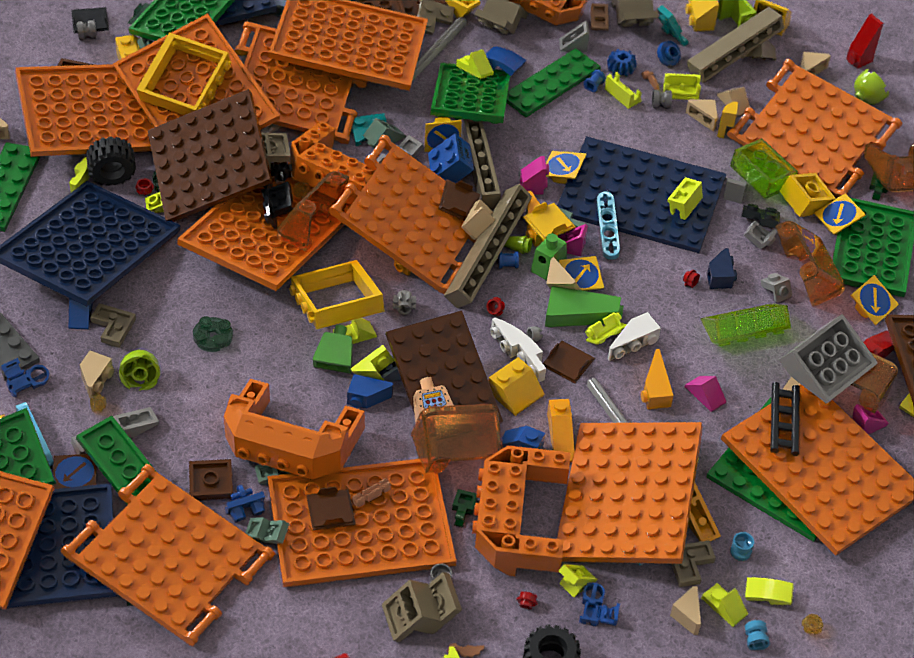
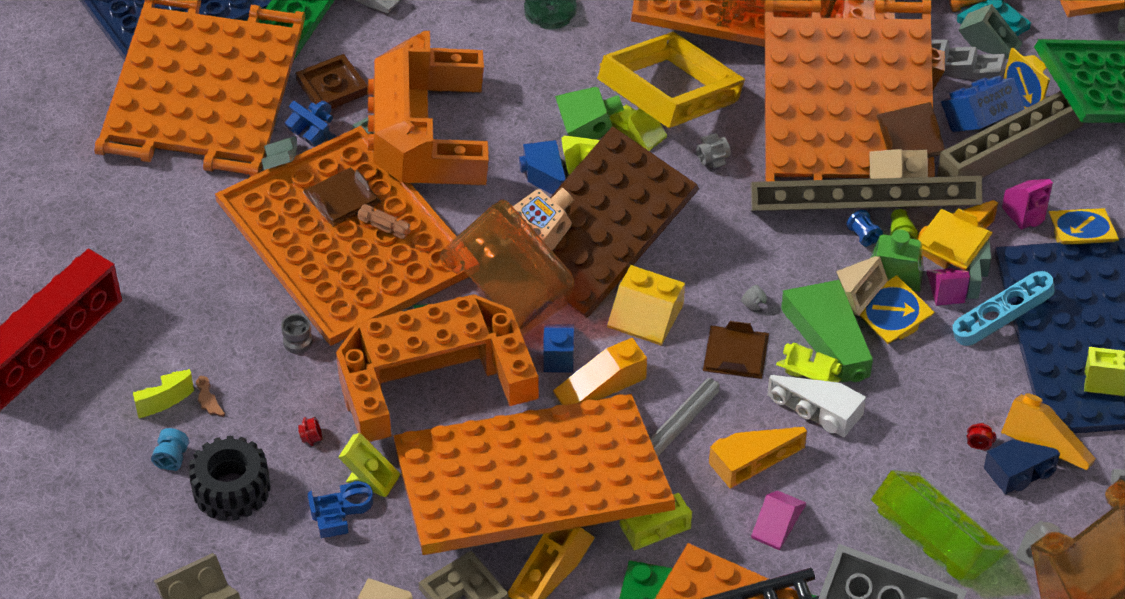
camera: 70 degrees right, 0 degrees up
(421, 607) = (238, 326): dark tan bracket -> none
(490, 306) = (772, 242): red plate -> none
(518, 344) = (717, 291): white slope -> none
(701, 250) = (1038, 424): none -> light orange slope

